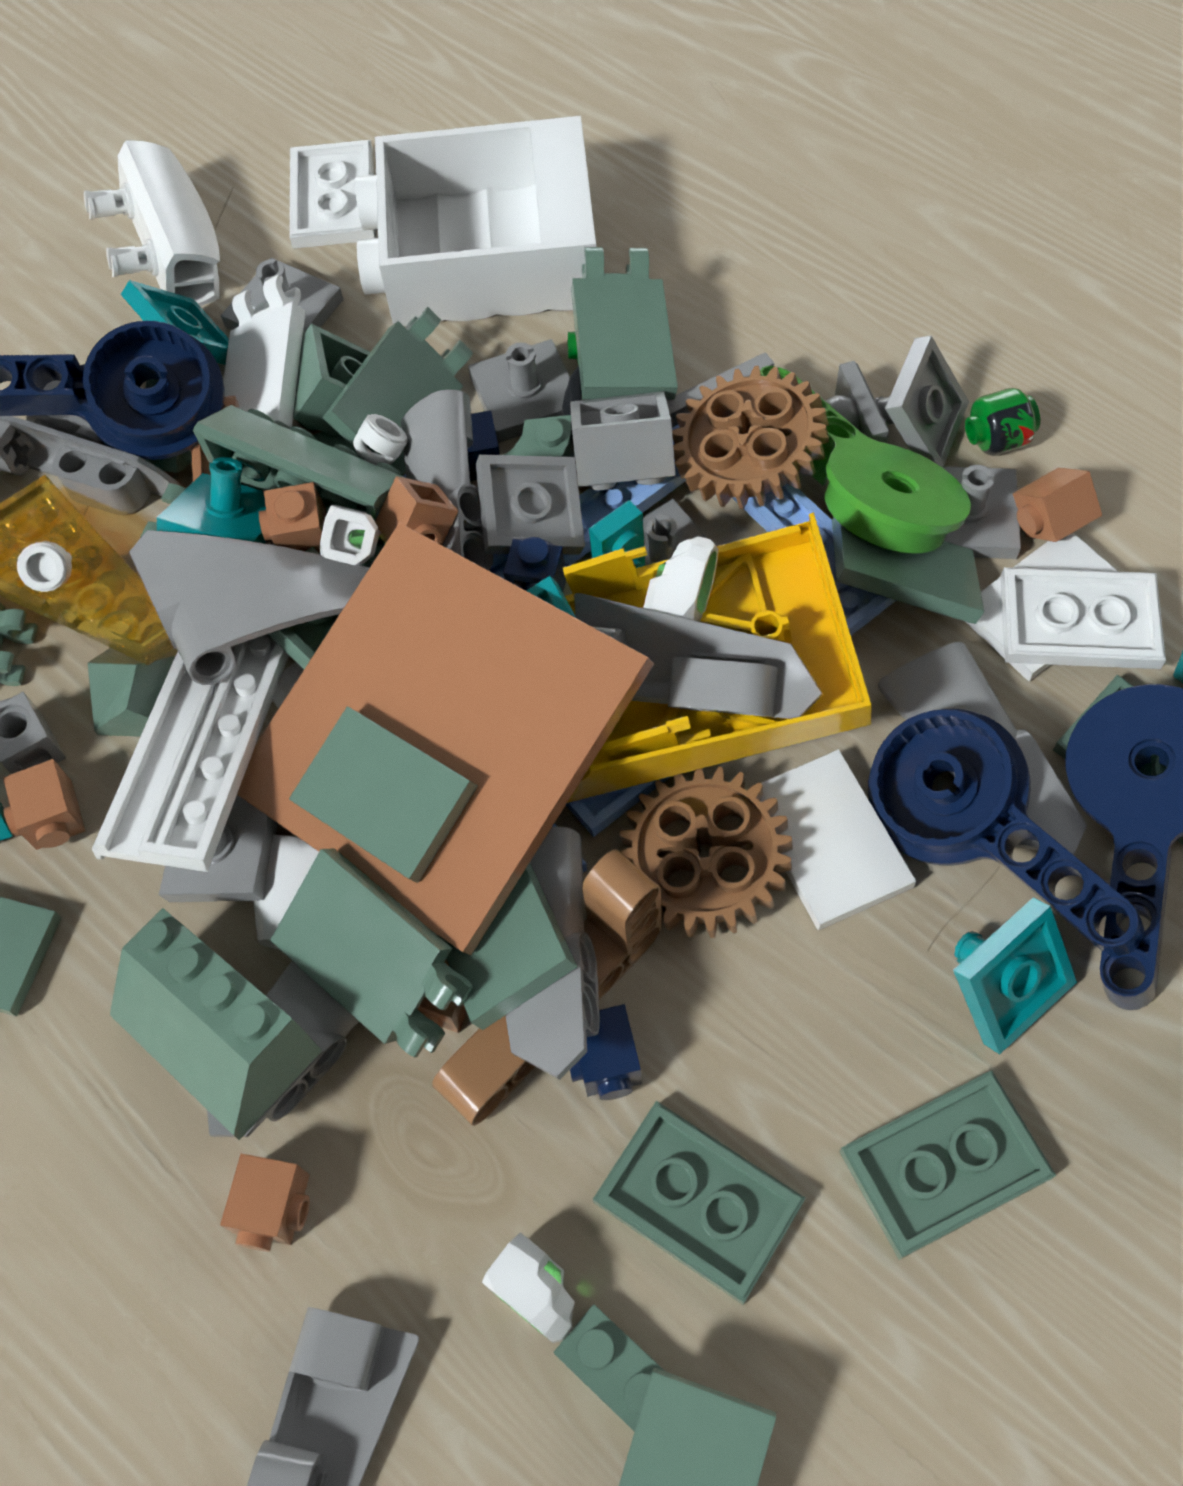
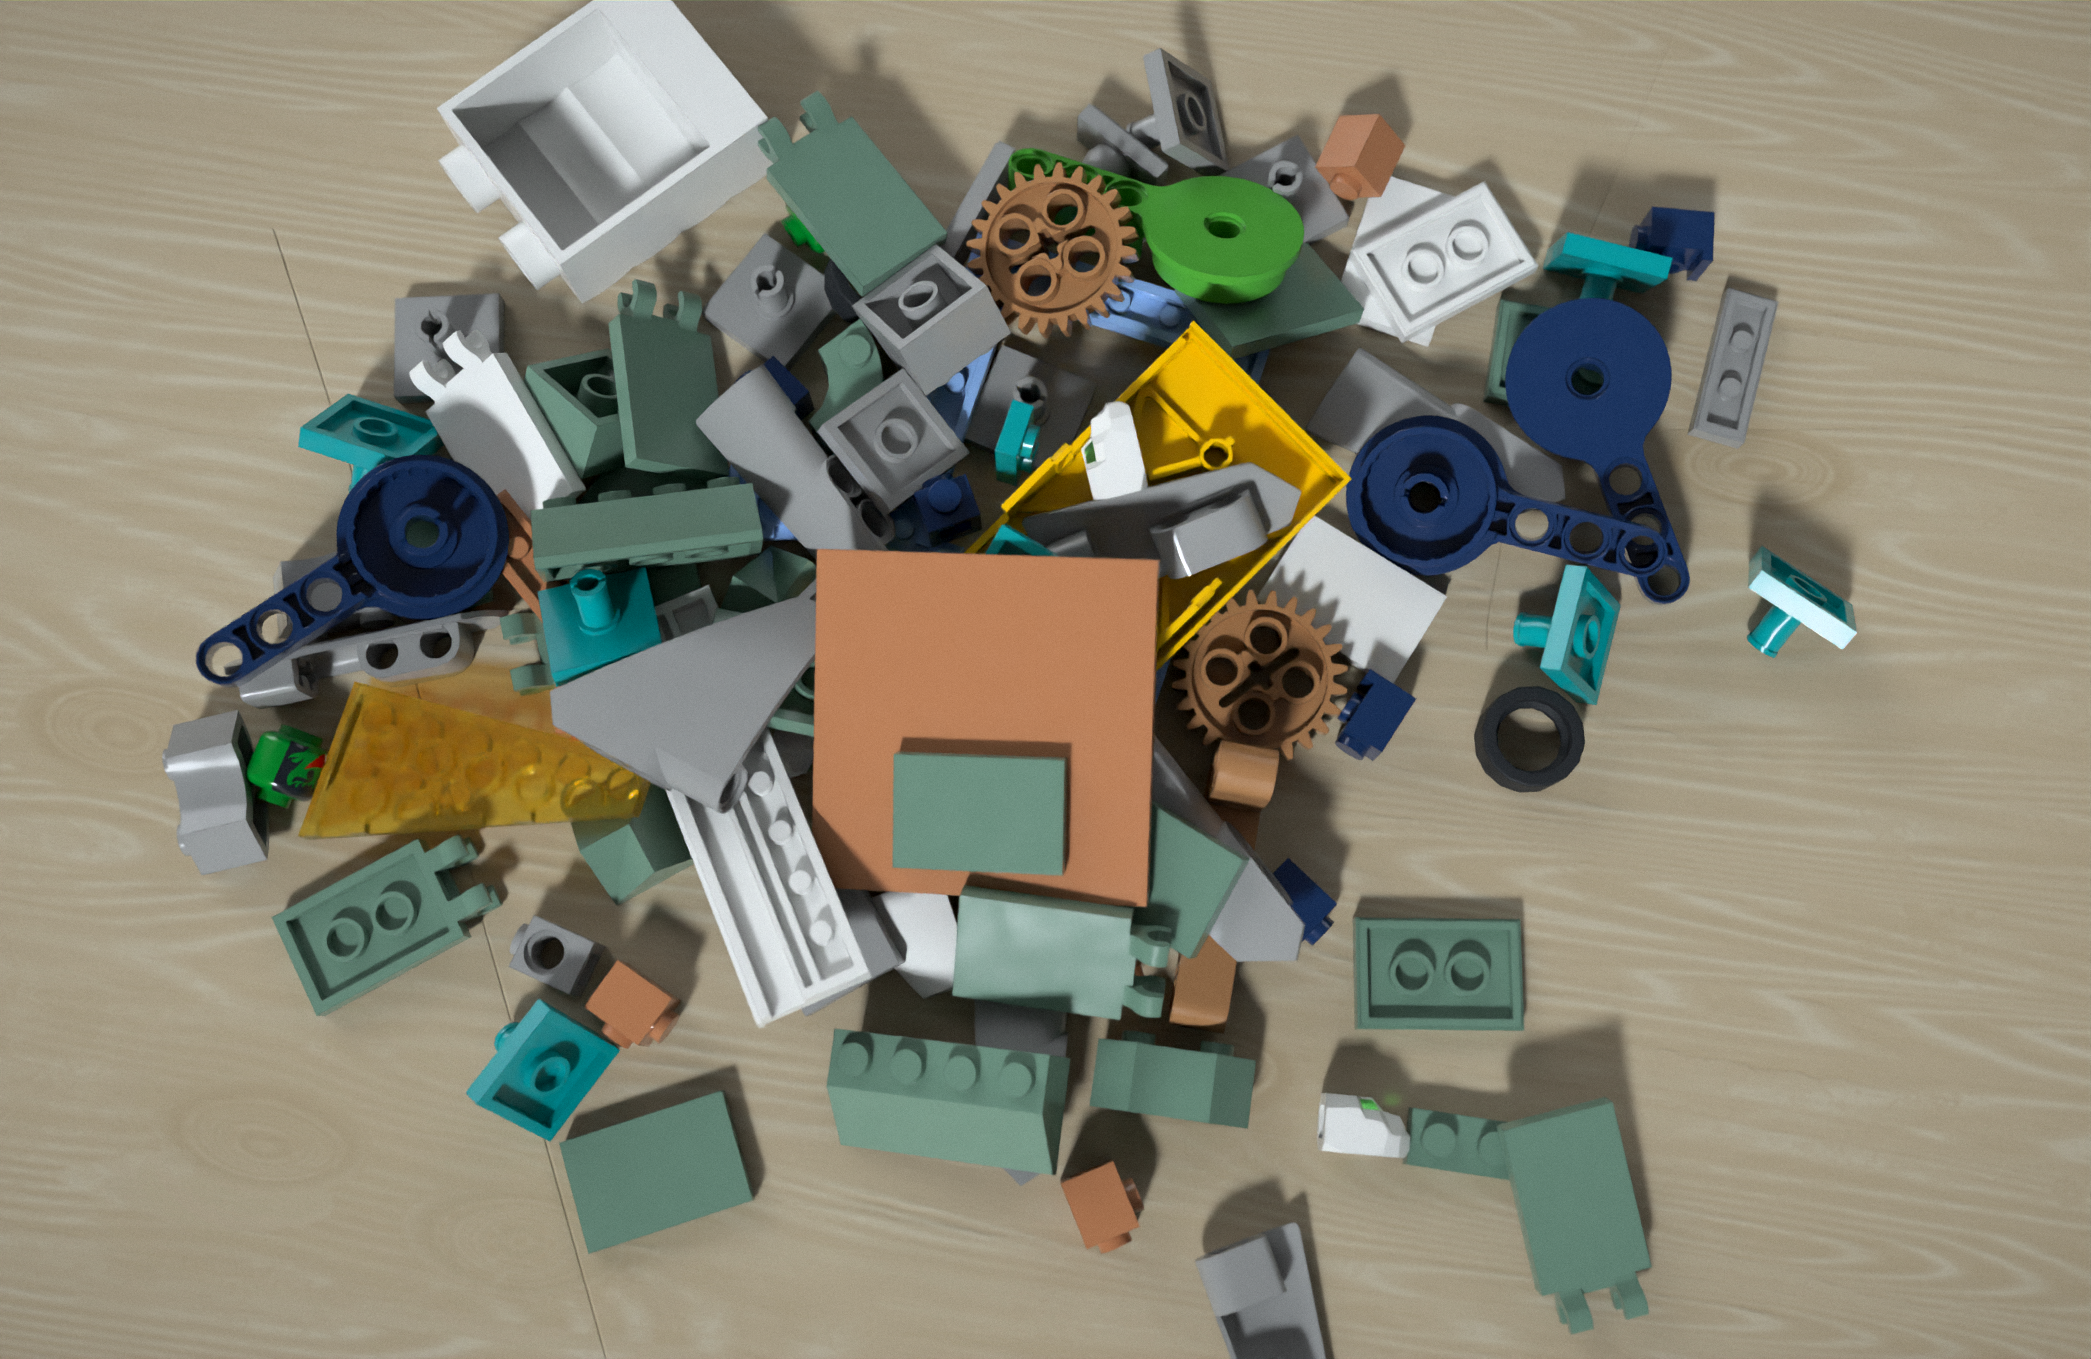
camera: 40 degrees left, 15 degrees up
(44, 566) = (462, 784): white tile -> none
(169, 219) = (255, 320): white piece -> none
(293, 517) = (686, 594): nougat brick -> none
(325, 193) = (395, 180): white tile -> none
(348, 536) = (757, 582): white rock -> none
(382, 436) = (699, 453): white tile -> none
(401, 1137) = (1173, 1081): none -> sand green brick
(417, 506) = (800, 521): nougat brick -> none
(782, 940) = (1372, 717): none -> dark blue brick
(946, 1164) = (1606, 821): sand green tile -> none
(948, 1017) = (1553, 706): none -> black tyre
(1003, 421) = (1259, 90): green head -> none

